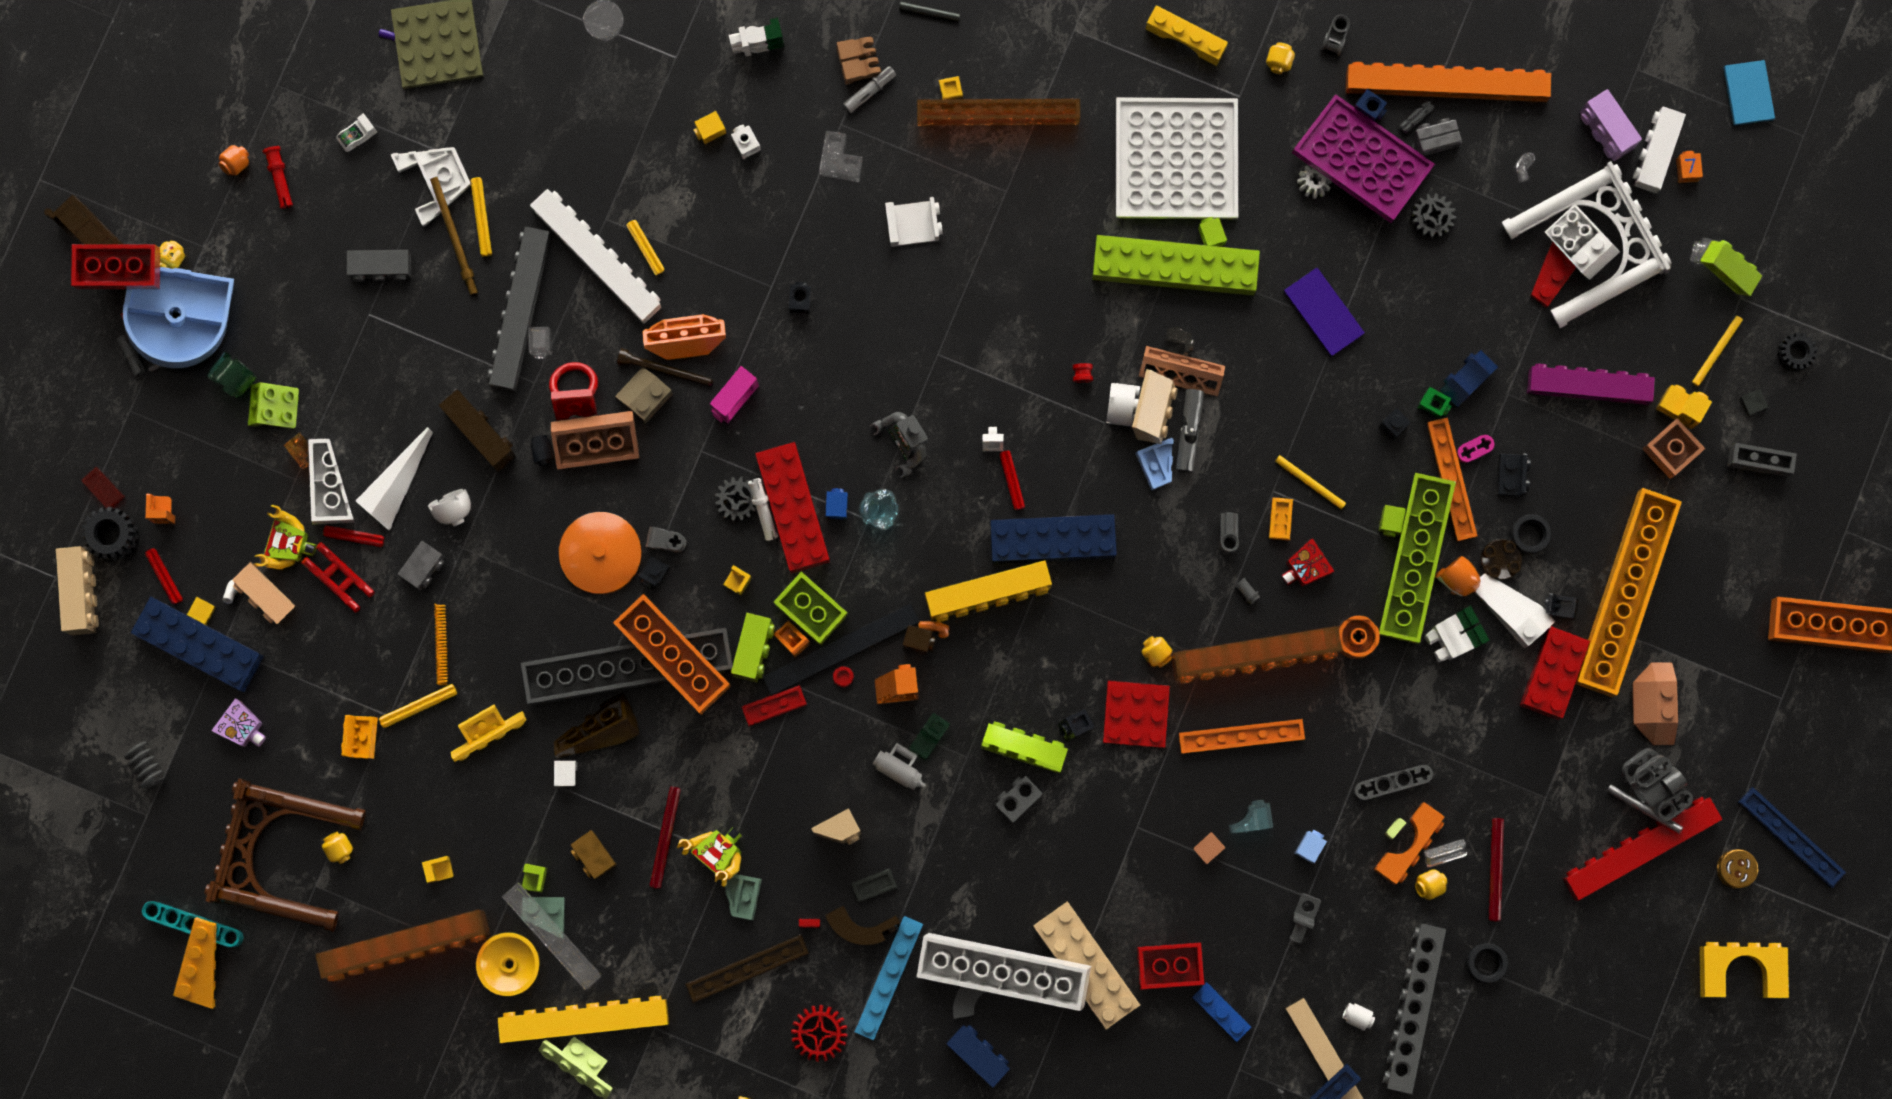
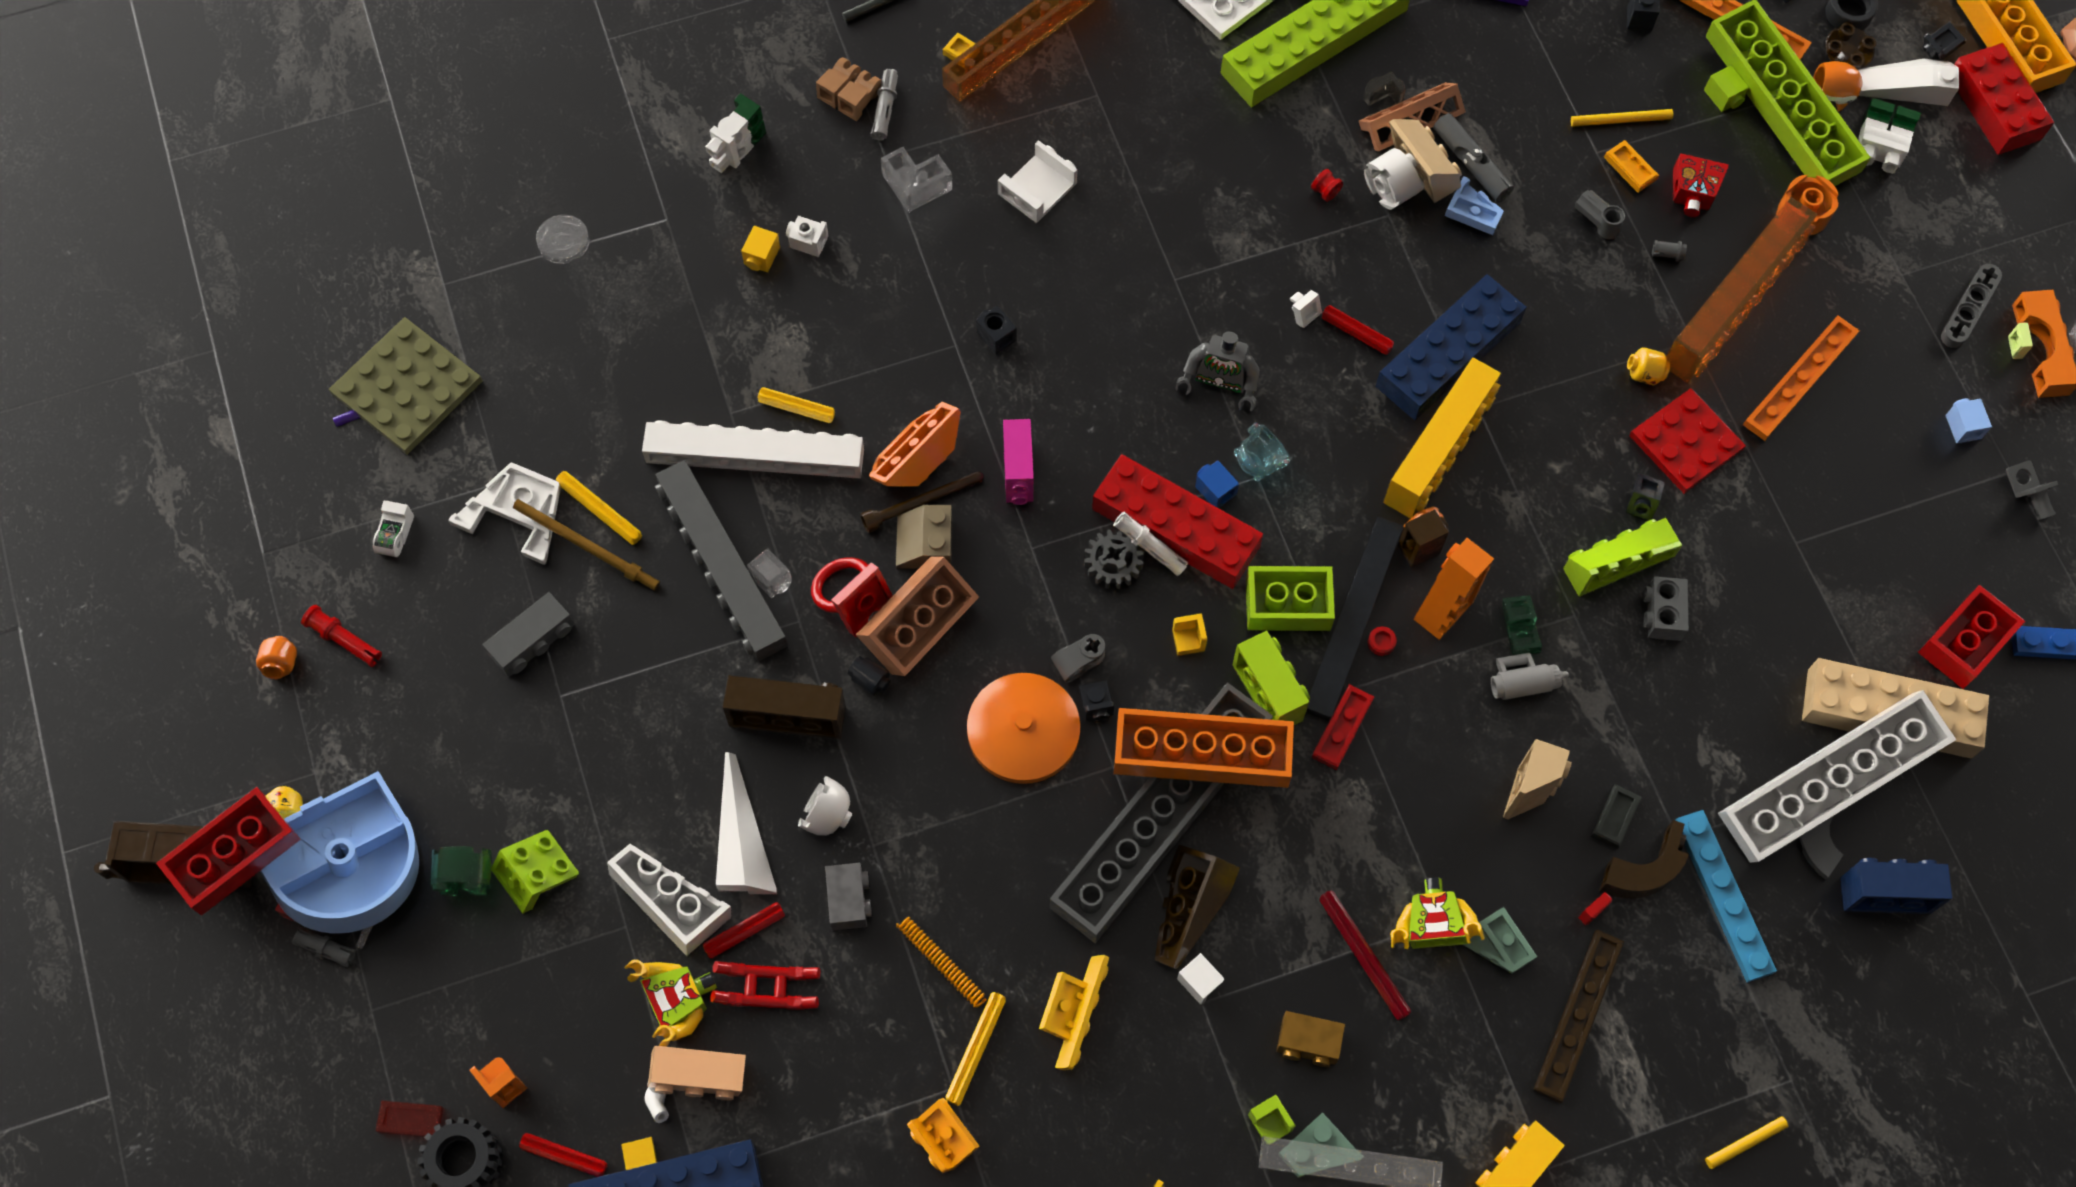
camera: 40 degrees left, 15 degrees down
(297, 448) = (604, 890): clear orange bracket -> none
(792, 638) = (1301, 644): orange slope -> none
(834, 1034) = (1700, 991): red gear -> none
(1209, 848) = (1885, 497): nougat panel -> none
(1257, 818) = (1892, 438): clear light blue arch -> none

